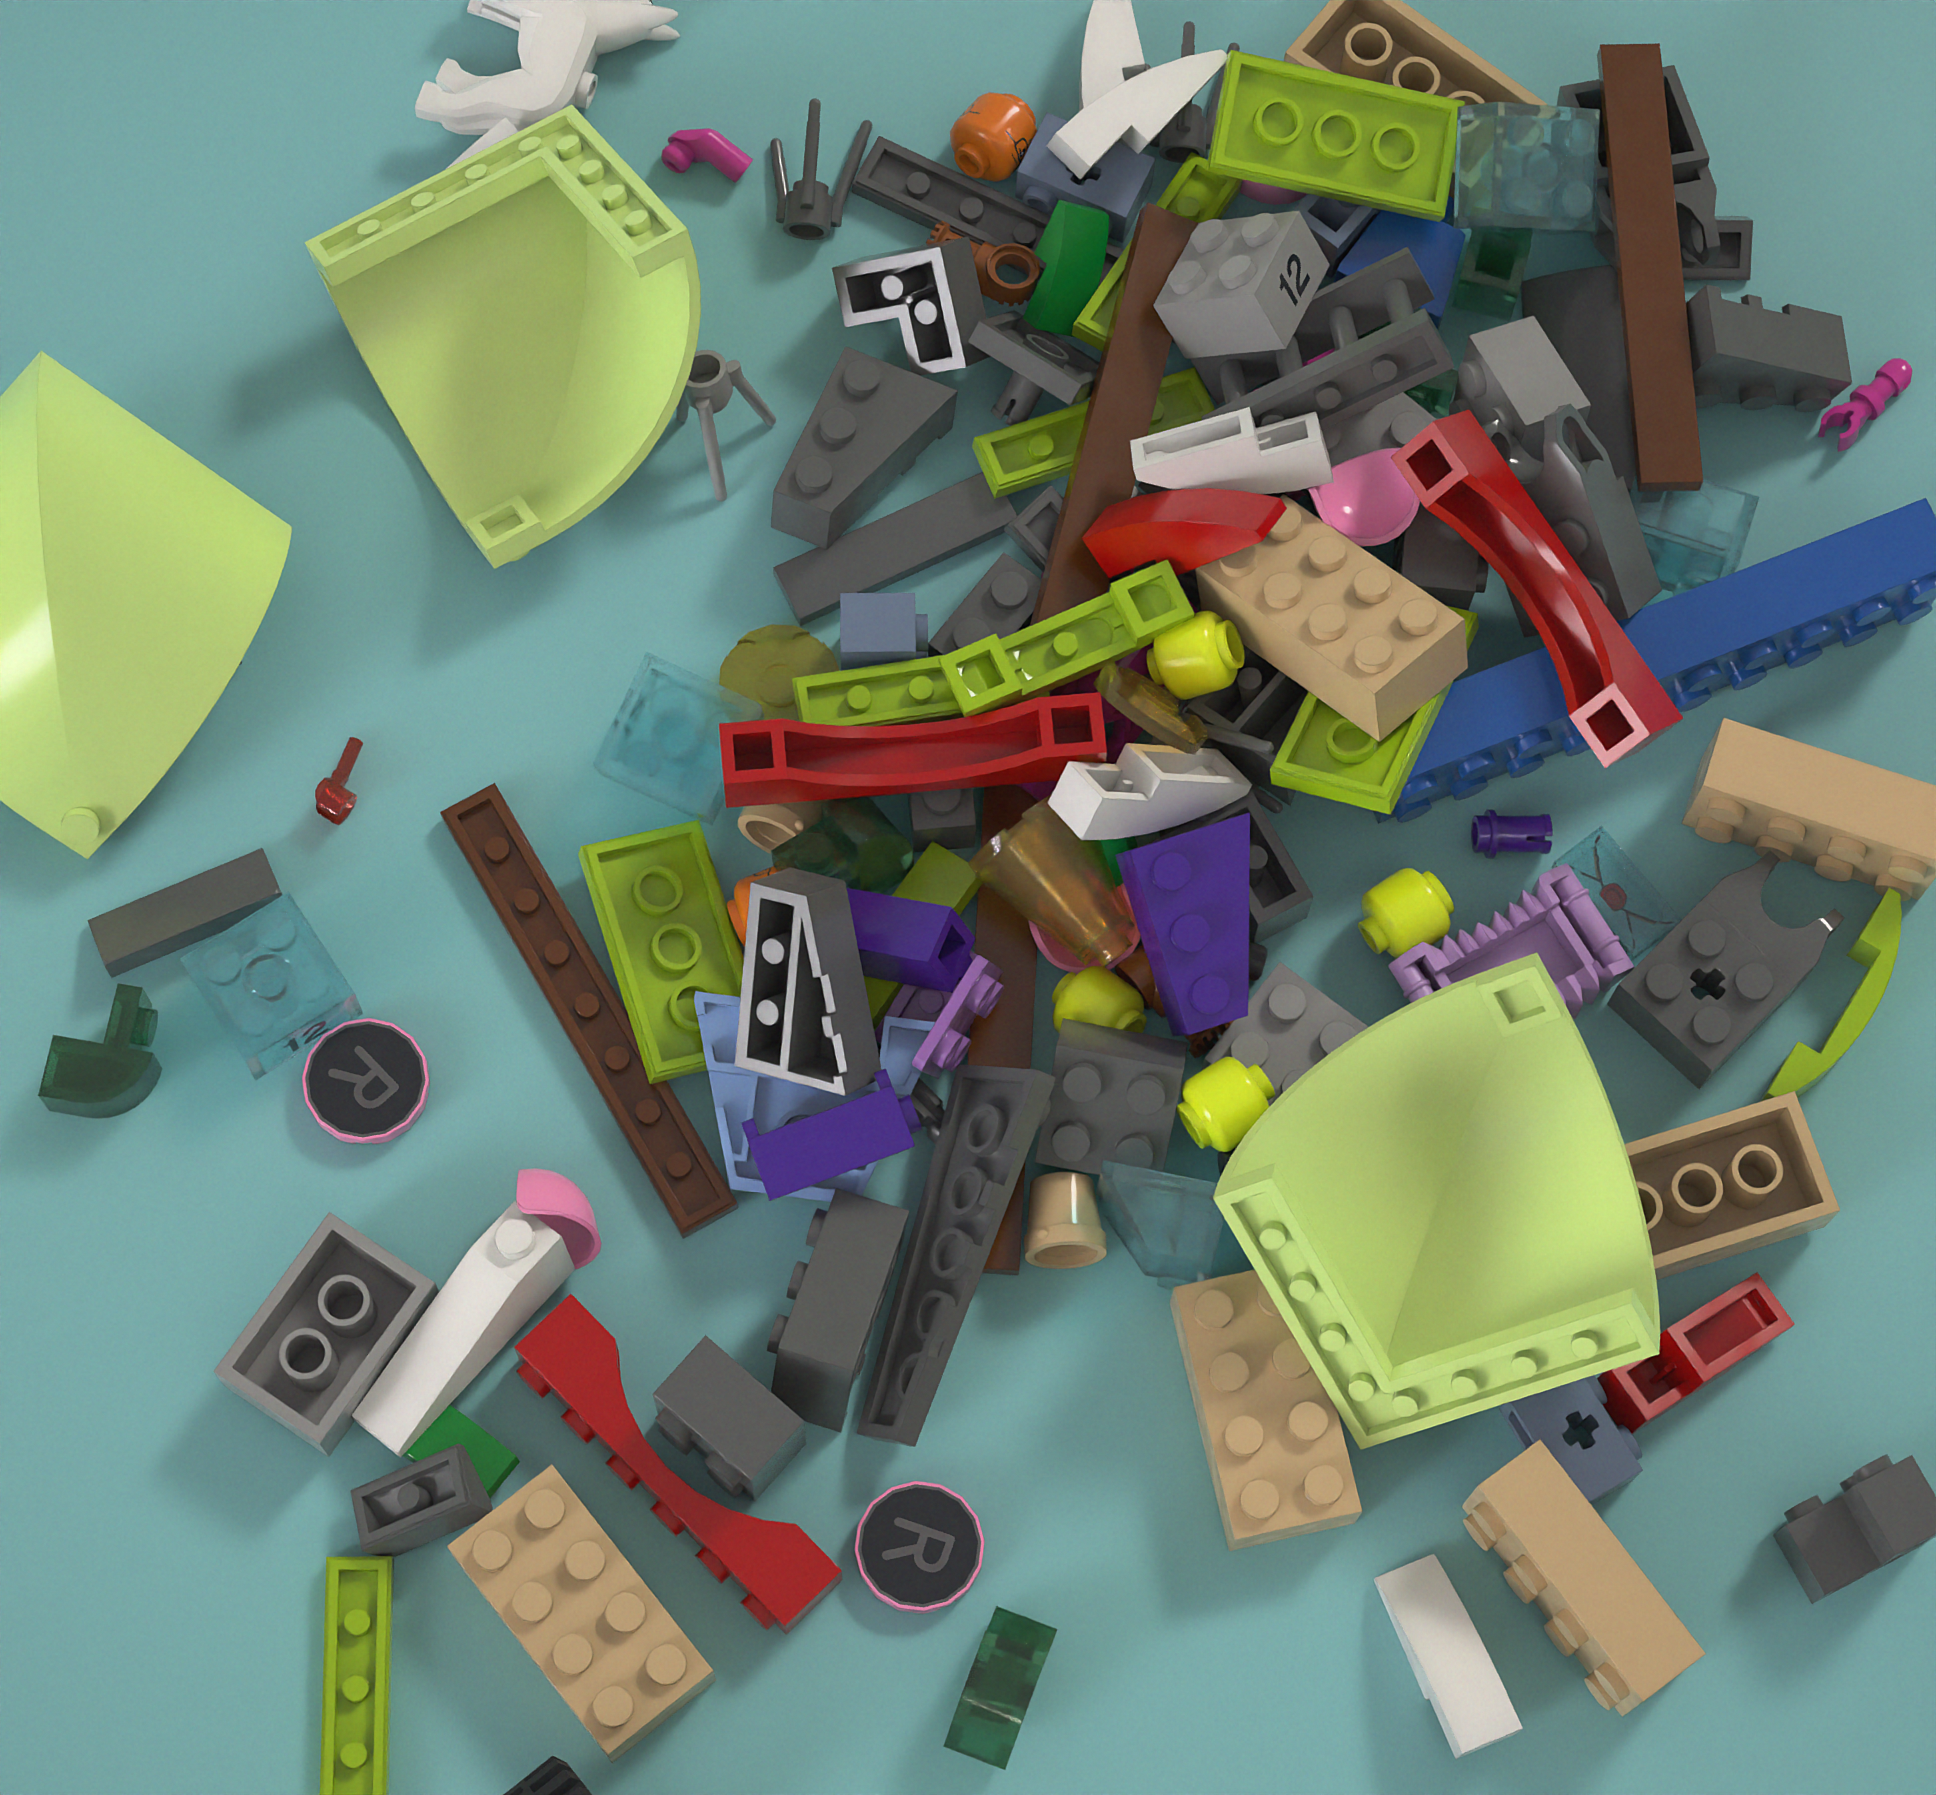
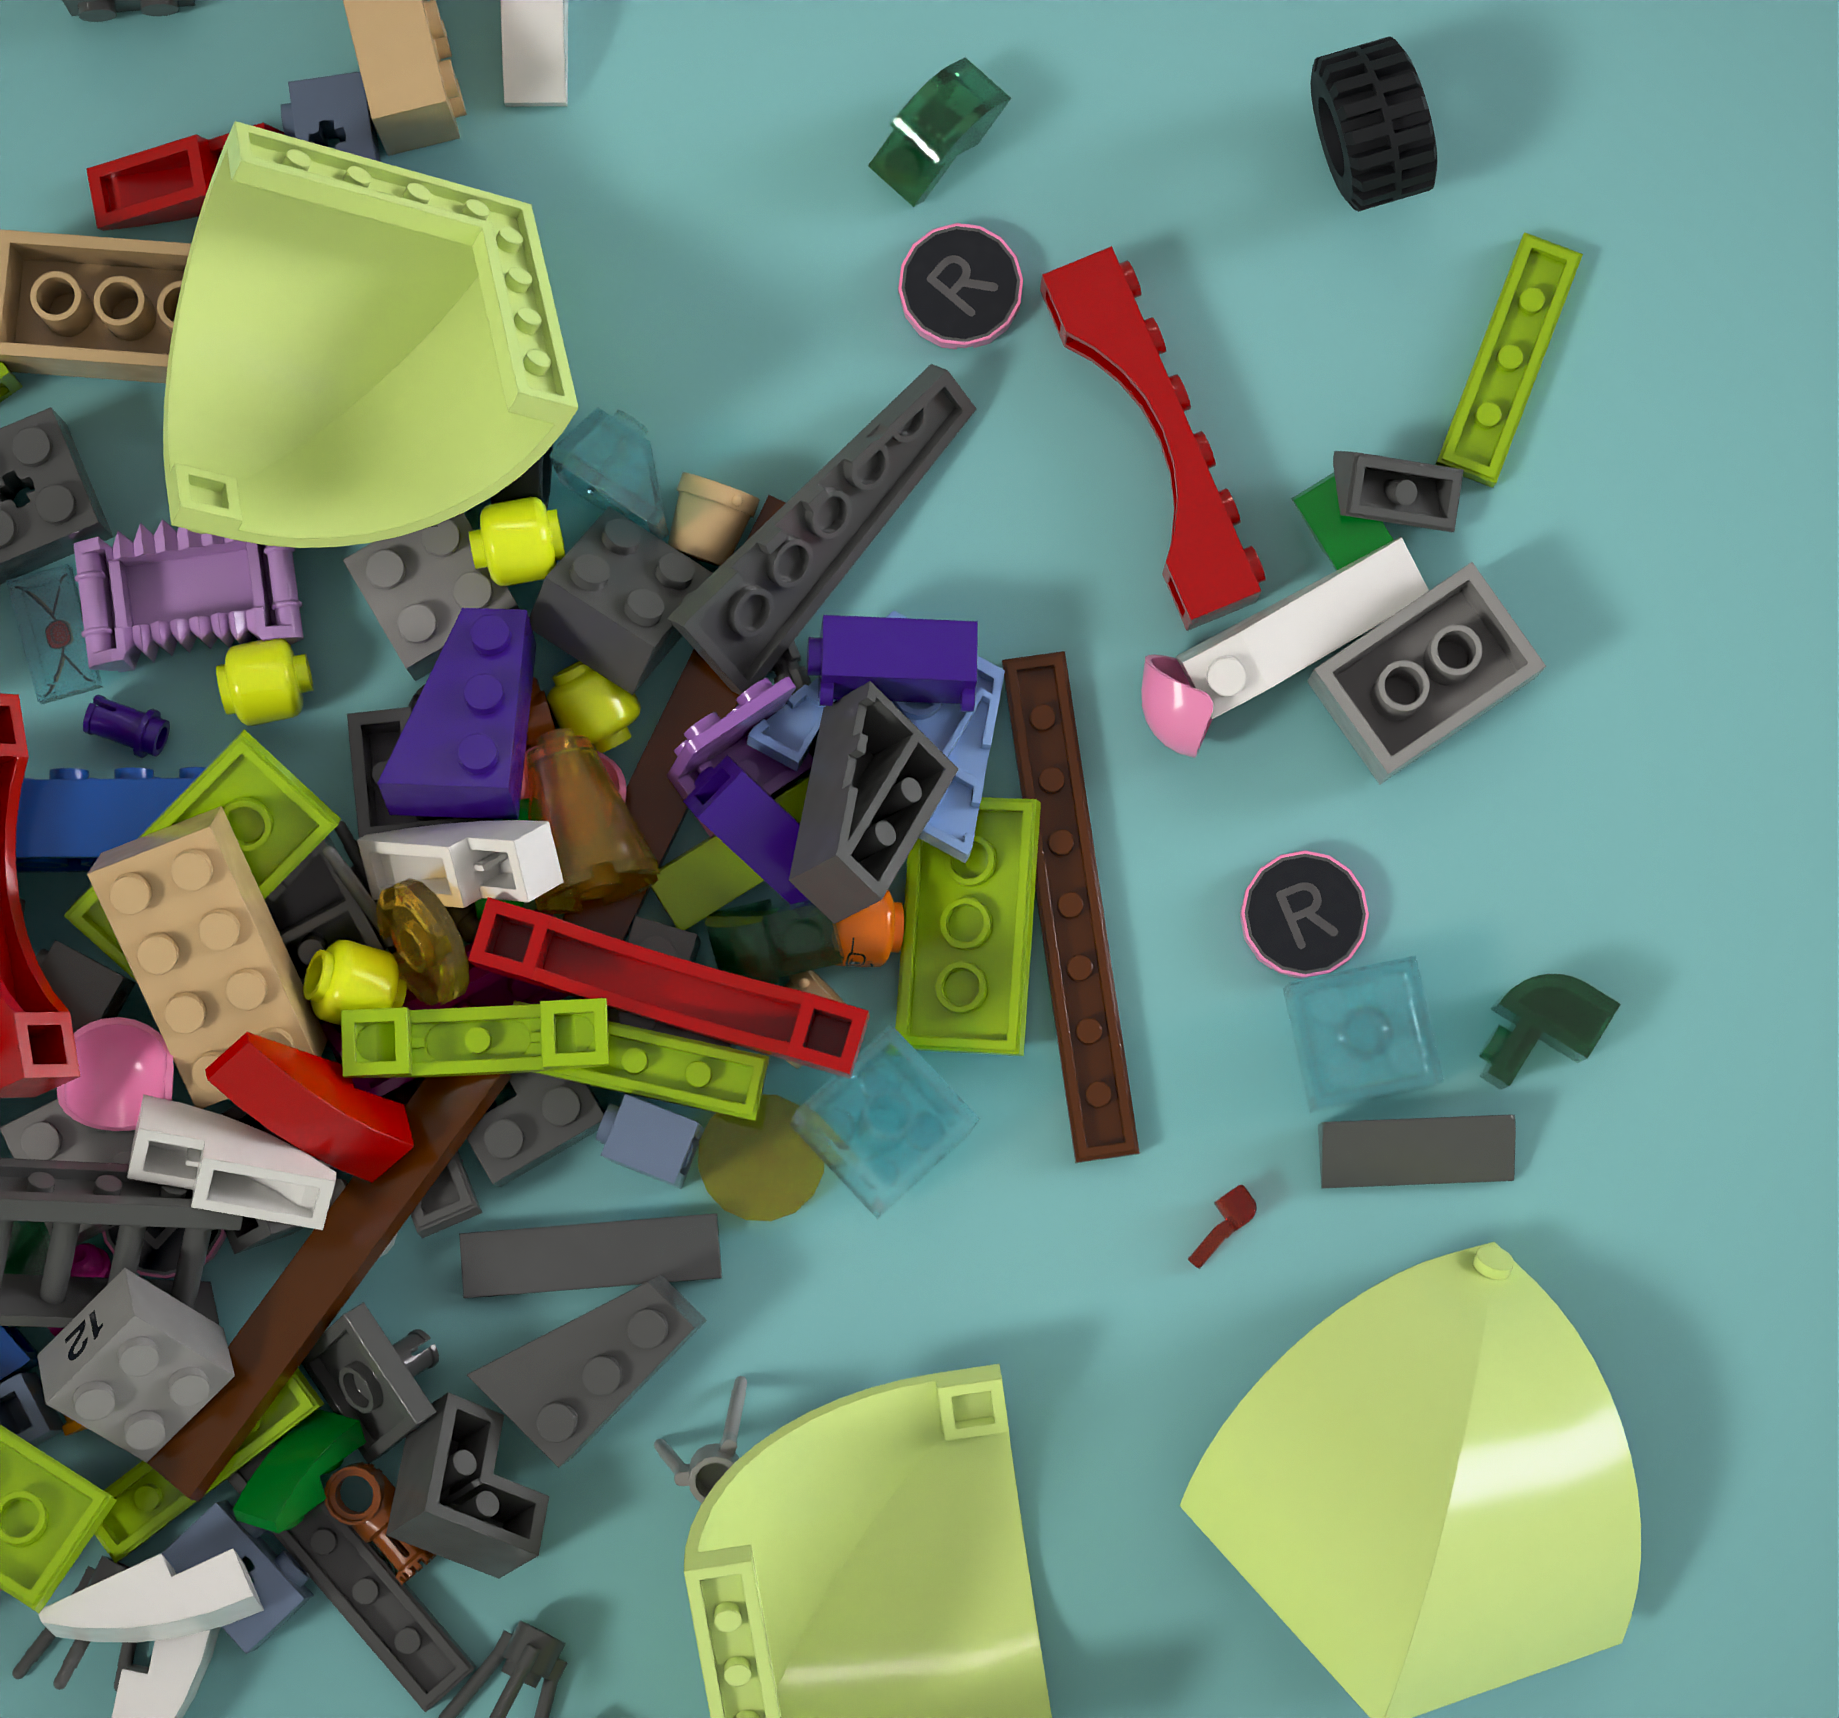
camera: 155 degrees left, 10 degrees up
(582, 1613) = (1286, 336): tan brick -> none
(728, 1420) = (1091, 445): dark grey brick -> none
(835, 1306) = (948, 521): dark grey wedge -> none
(993, 136) = (309, 1659): orange head -> none
(1047, 444) = (393, 1292): lime tile -> none
(1261, 1415) = (608, 265): tan brick -> none

